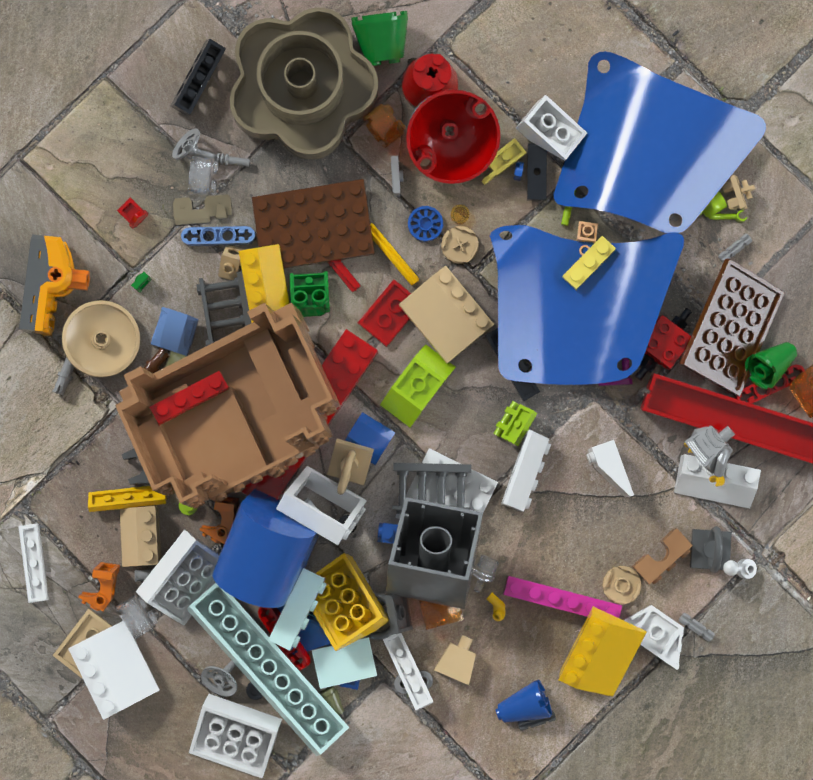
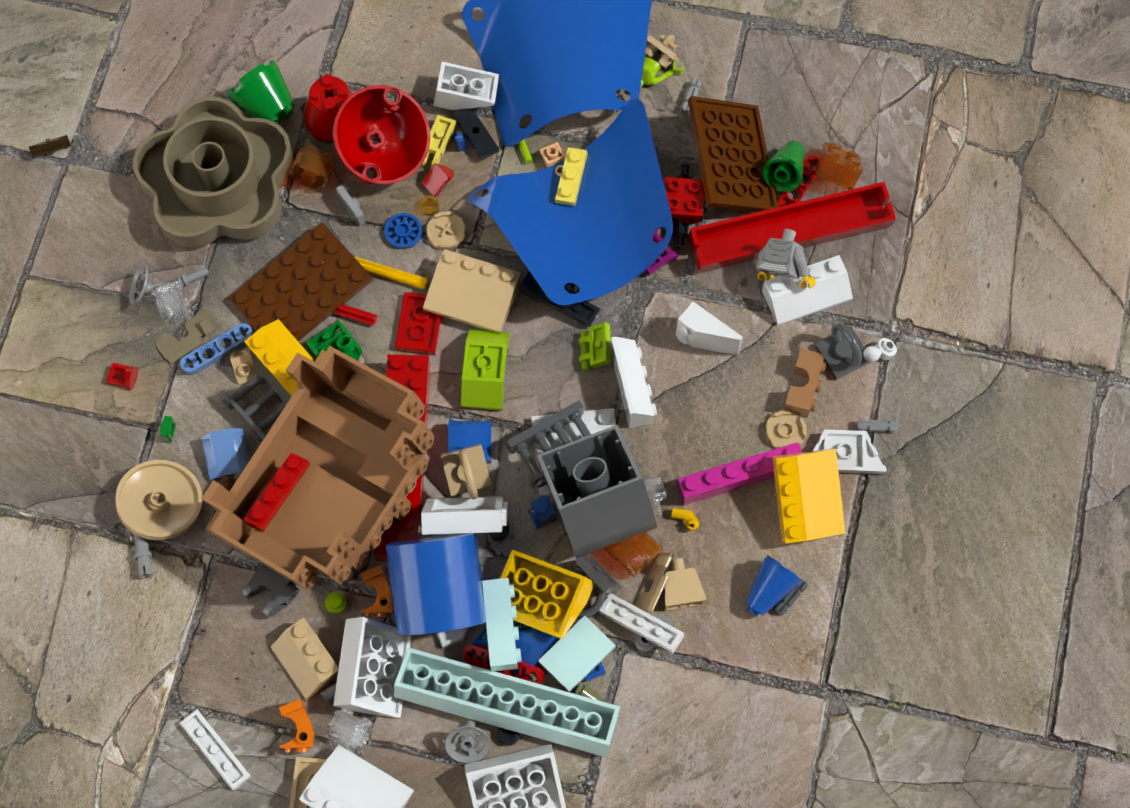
camera: 30 degrees left, 15 degrees down
(48, 276) = (76, 474): piece -> none
(124, 498) = (271, 631): yellow plate -> none
(198, 77) = (115, 224): black brick -> none
(423, 655) = (648, 600): none -> tan piece
(480, 195) = (437, 178): none -> tile

